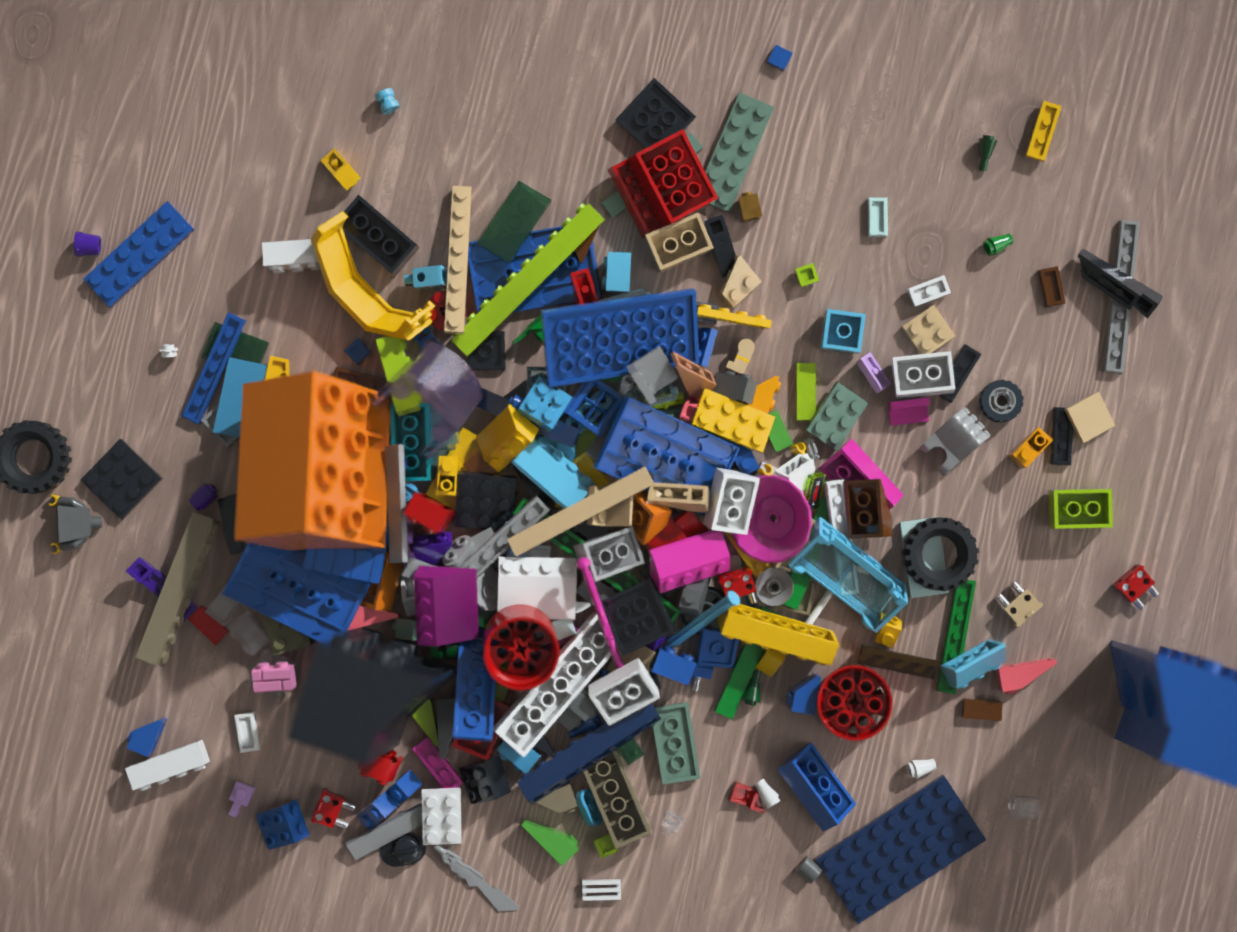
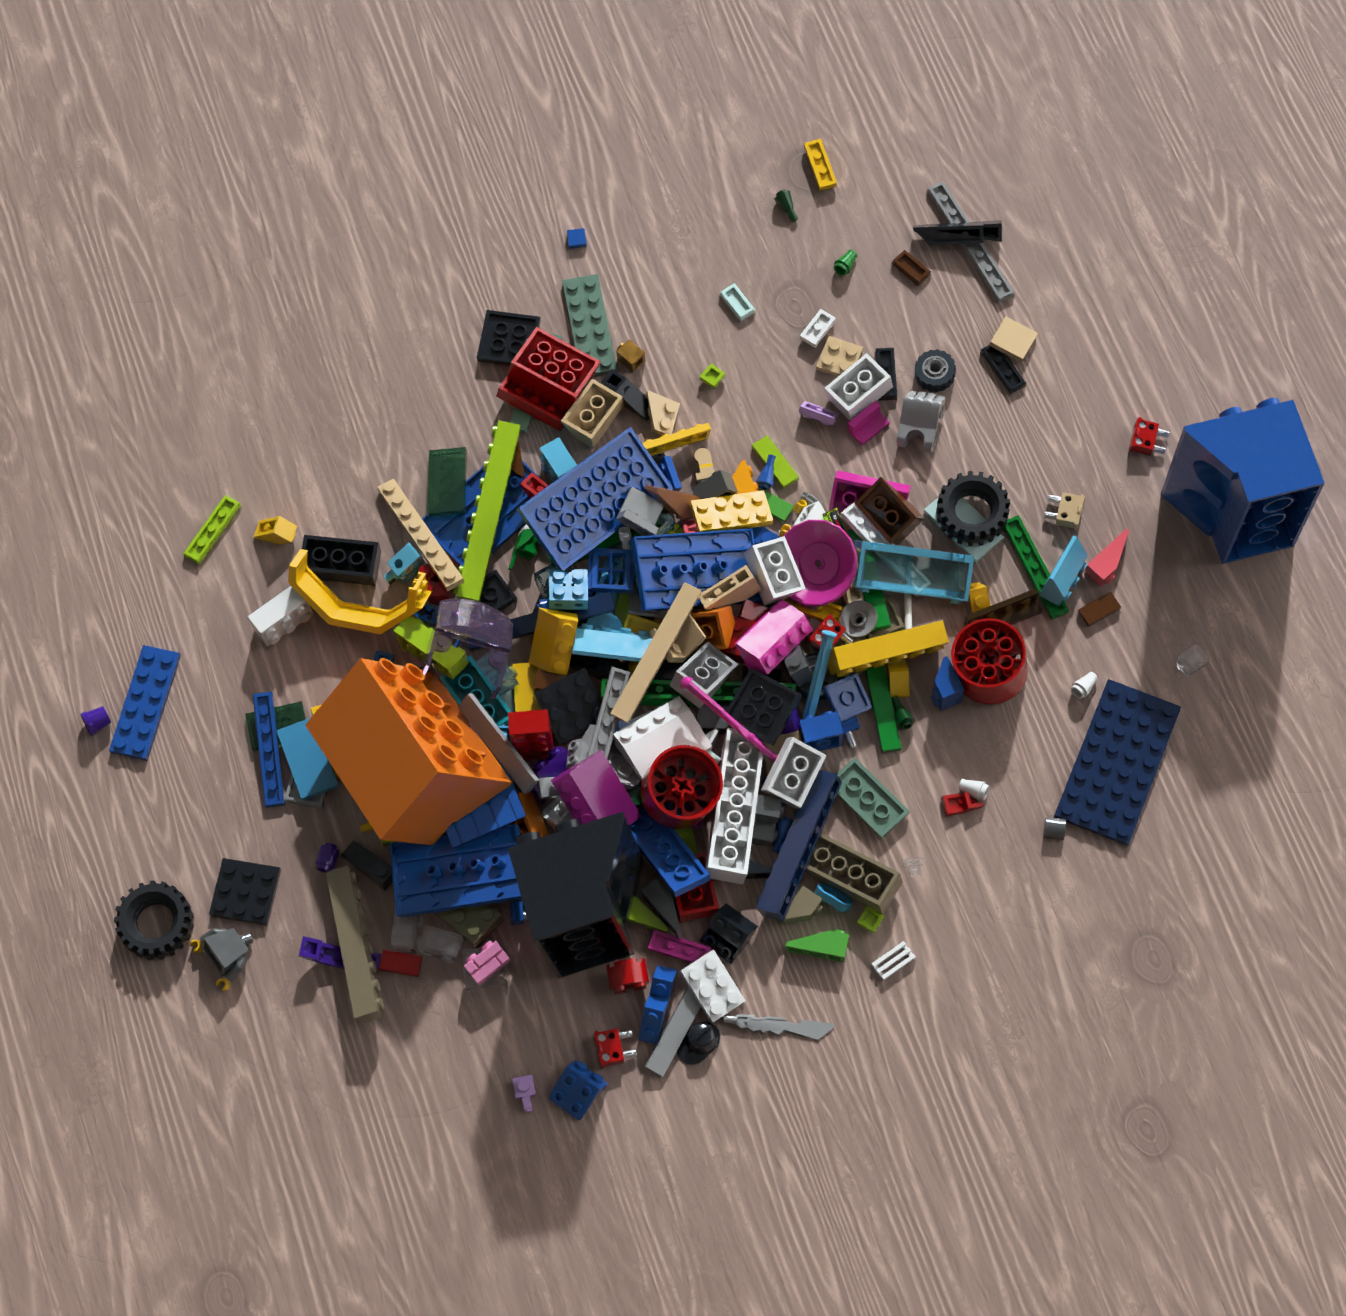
camera: 30 degrees left, 20 degrees down
(146, 737) = (406, 1091): blue slope -> none
(166, 765) = (441, 1102): white brick -> none
(168, 350) = (220, 760): white plate -> none
(247, 732) = (493, 1032): white tile -> none
(289, 129) = (212, 530): none -> lime tile
(387, 101) = (281, 458): medium azure wheel -> none
(447, 475) = (523, 698): yellow slope -> none
(521, 763) = (742, 894): dark azure brick -> none
(631, 751) = (835, 826): clear green brick -> none
(788, 401) = (765, 479): none -> blue cone
(817, 787) = (1011, 756): blue slope -> none
(836, 416) = (813, 463): sand green plate -> none
(842, 331) = (771, 396): medium azure brick -> none
(1030, 448) = (983, 389): light orange slope -> none
(1080, 508) = (1057, 407): lime brick -> none

